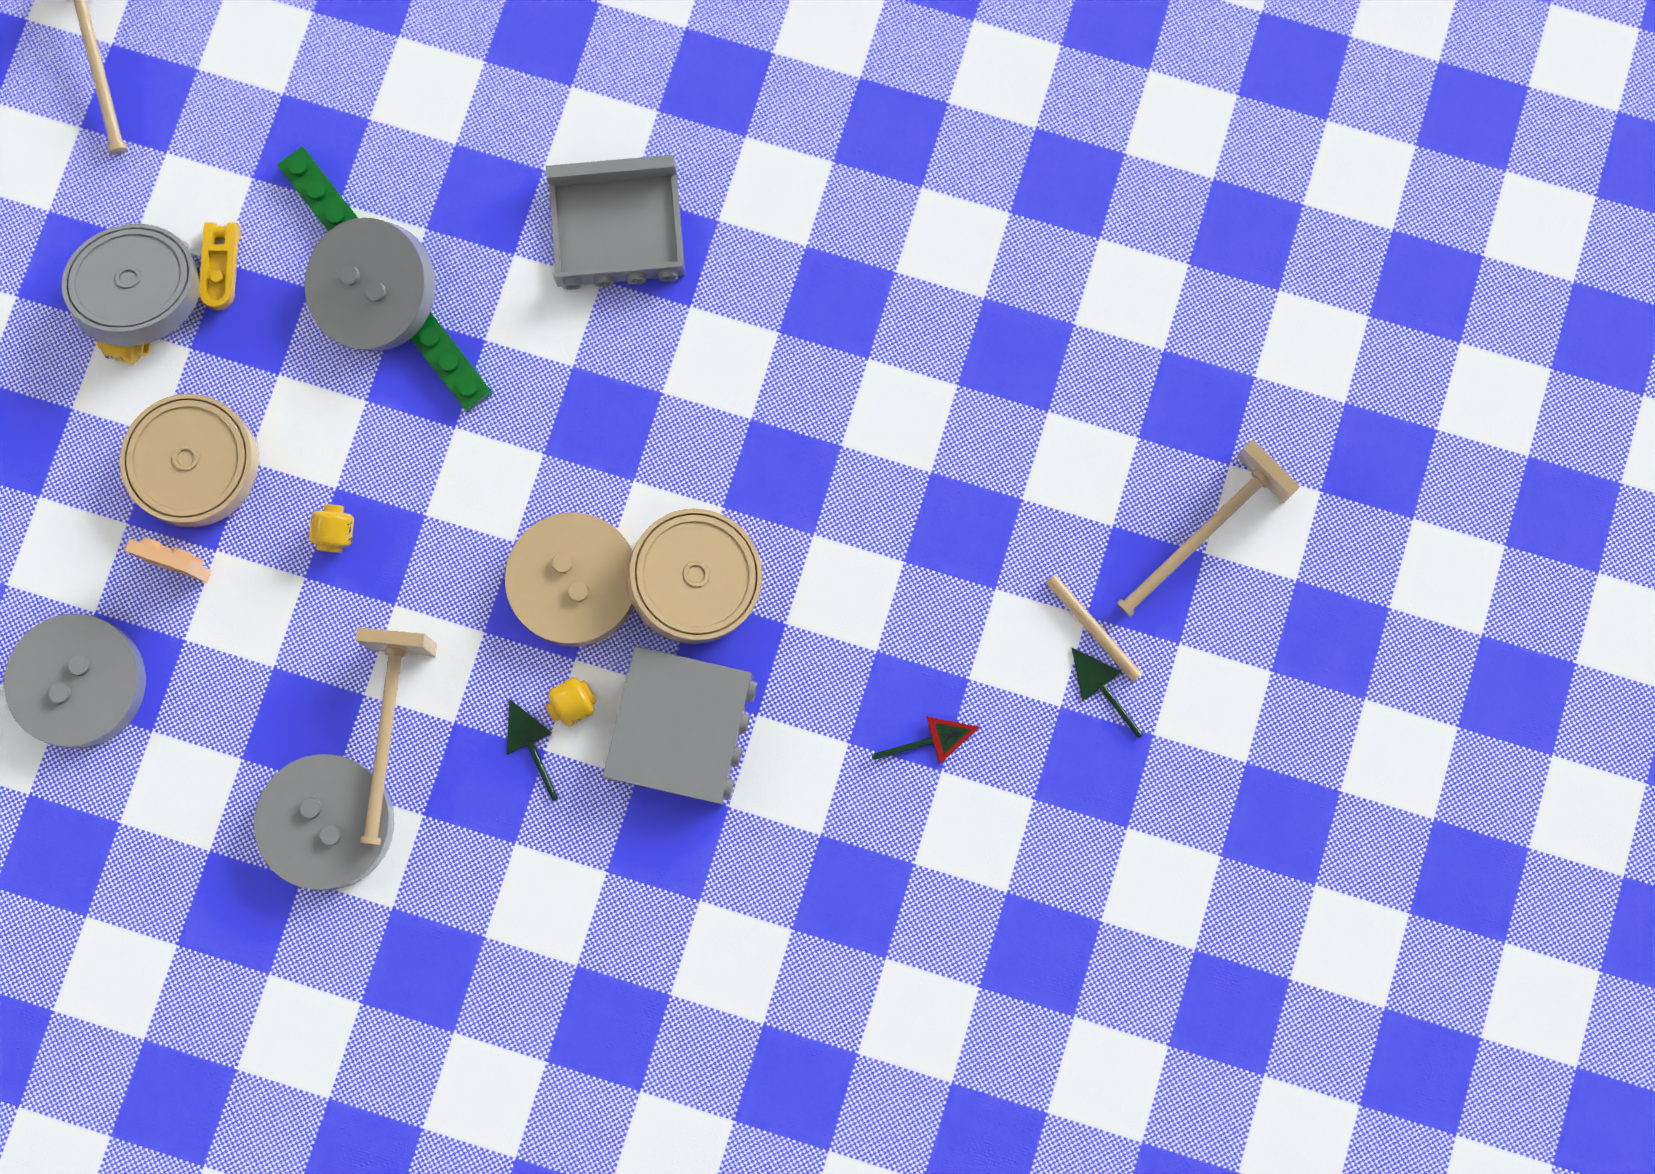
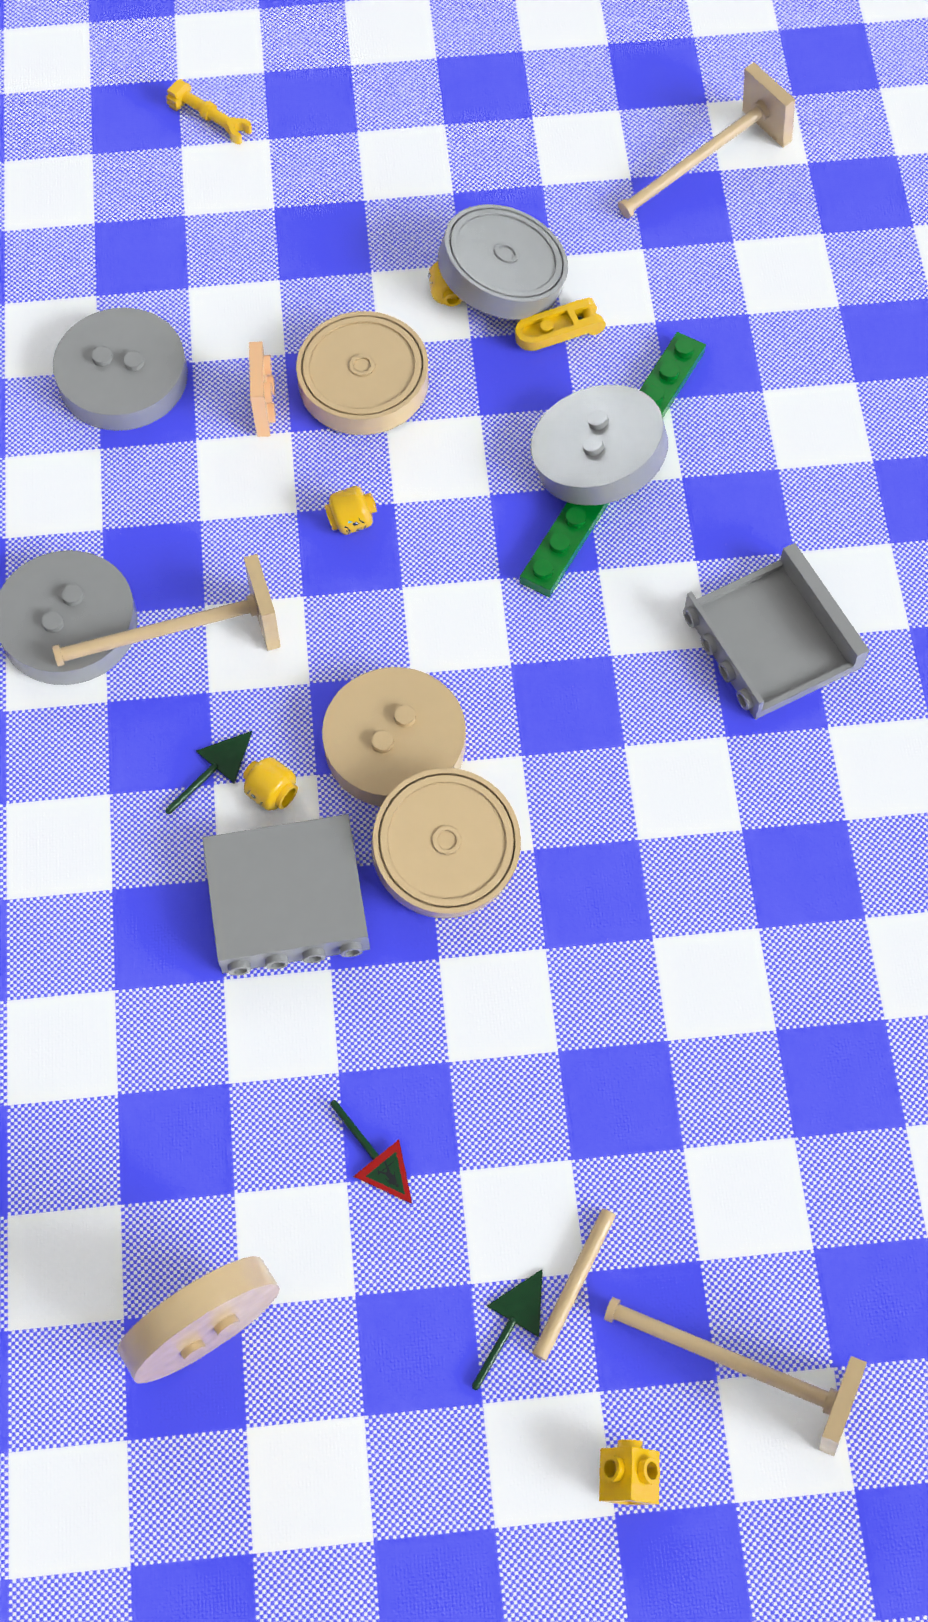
camera: 65 degrees right, 15 degrees down
(1023, 923) = (197, 1319): none -> tan brick
(1252, 647) = (629, 1474): none -> yellow brick

